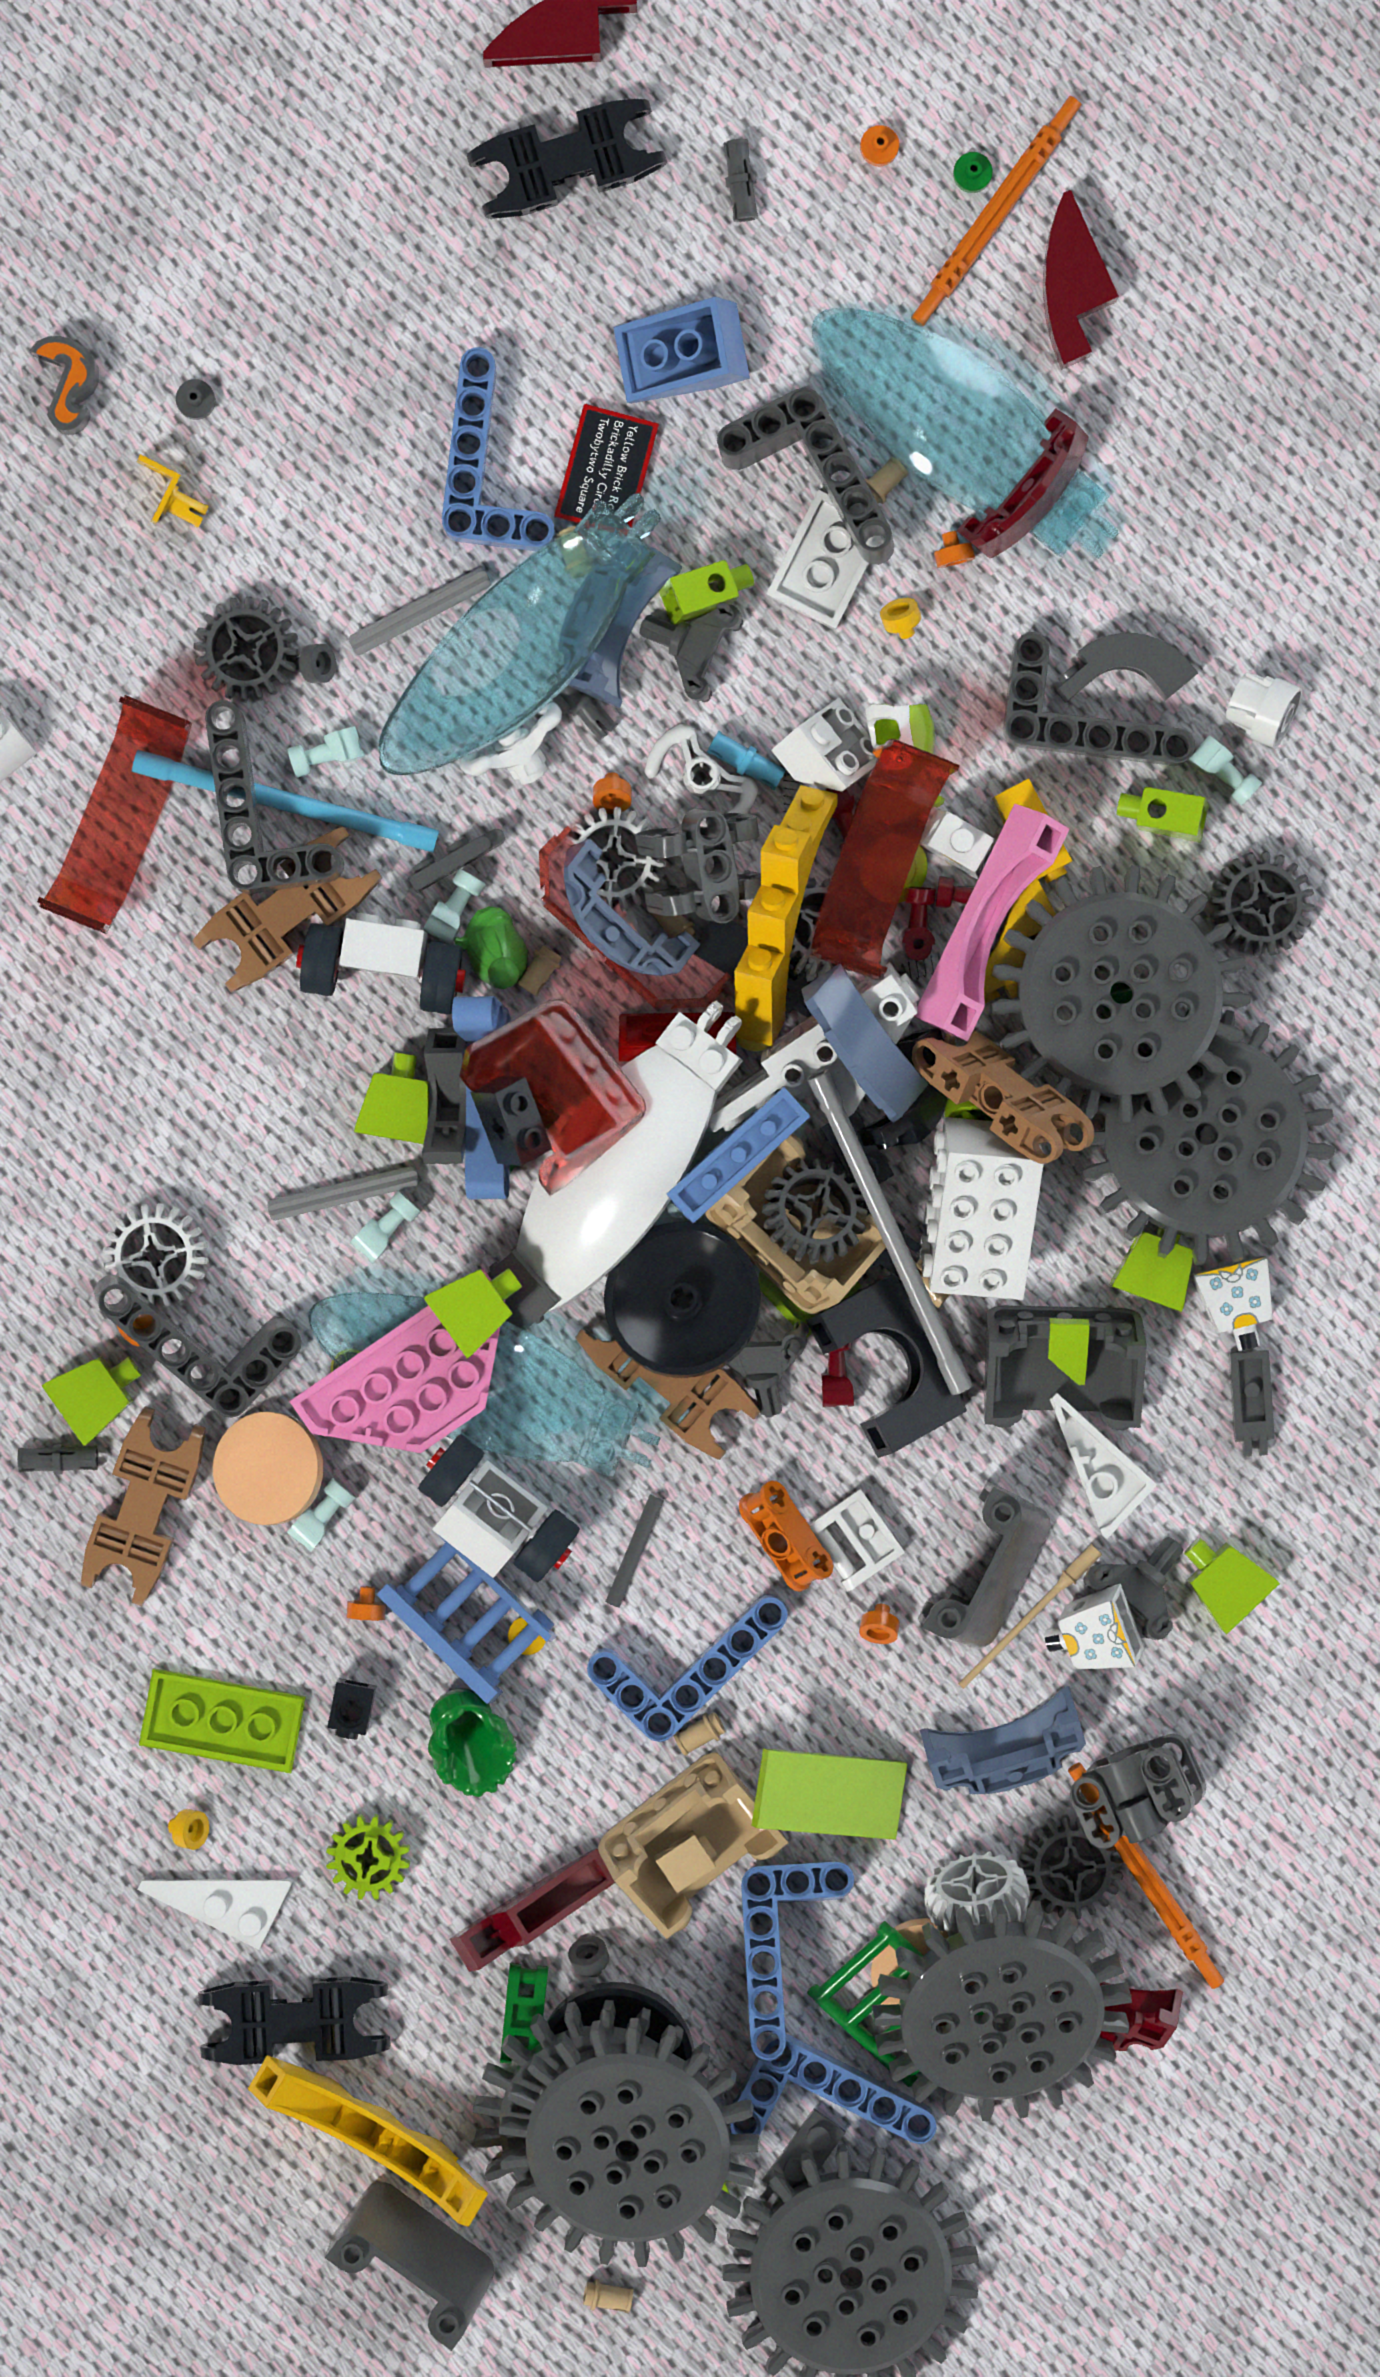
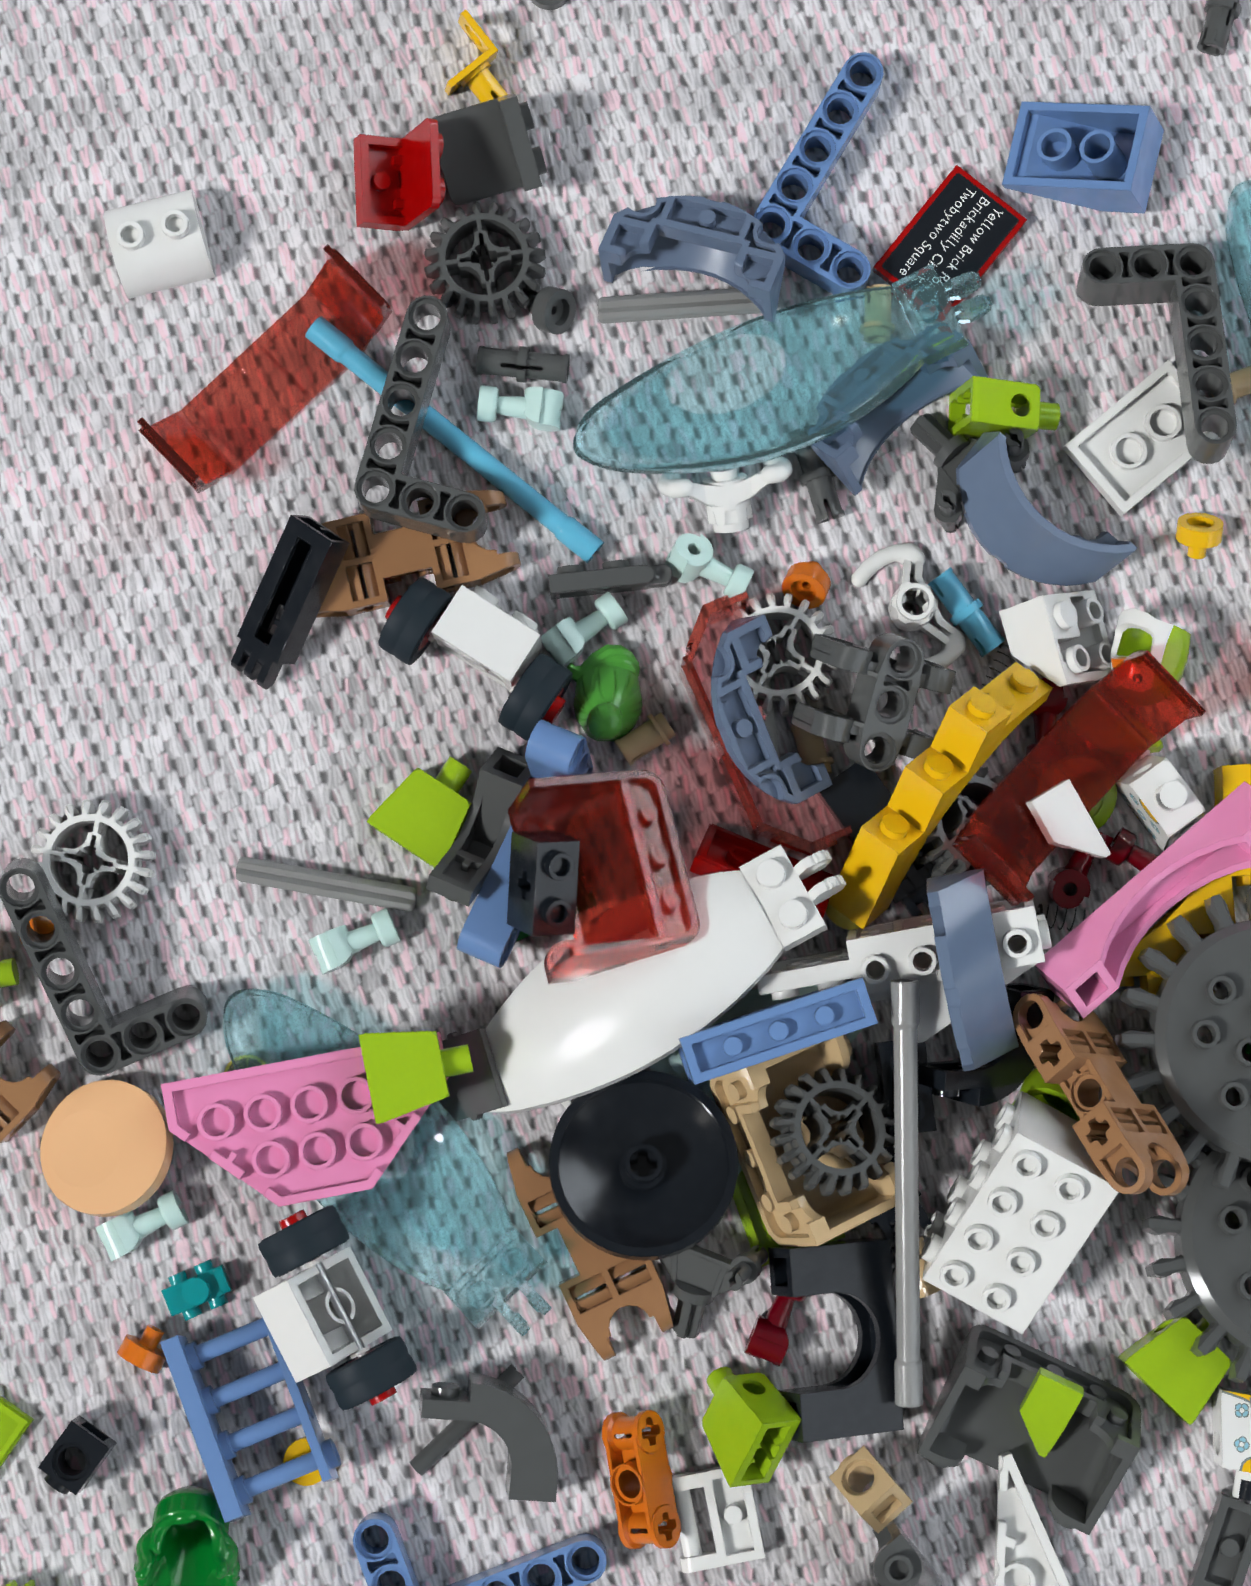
camera: 30 degrees right, 5 degrees down
(148, 612) = (398, 178): none -> red bracket
(207, 558) = (489, 150): none -> dark grey bracket
(215, 967) = (299, 581): none -> black hinge
(312, 717) = (522, 364): none -> dark grey pin
(379, 1551) = (187, 1294): none -> teal piece
(406, 555) = (701, 239): none -> sand blue windscreen
(514, 812) = (693, 558): none -> light aqua leg
(651, 1528) = (492, 1402): none -> dark grey arch
(760, 684) = (1018, 533): none -> sand blue windscreen
(848, 1460) = (747, 1426): none -> lime torso
(891, 894) = (1067, 821): none -> white tile
(972, 1472) = (882, 1500): none -> tan brick

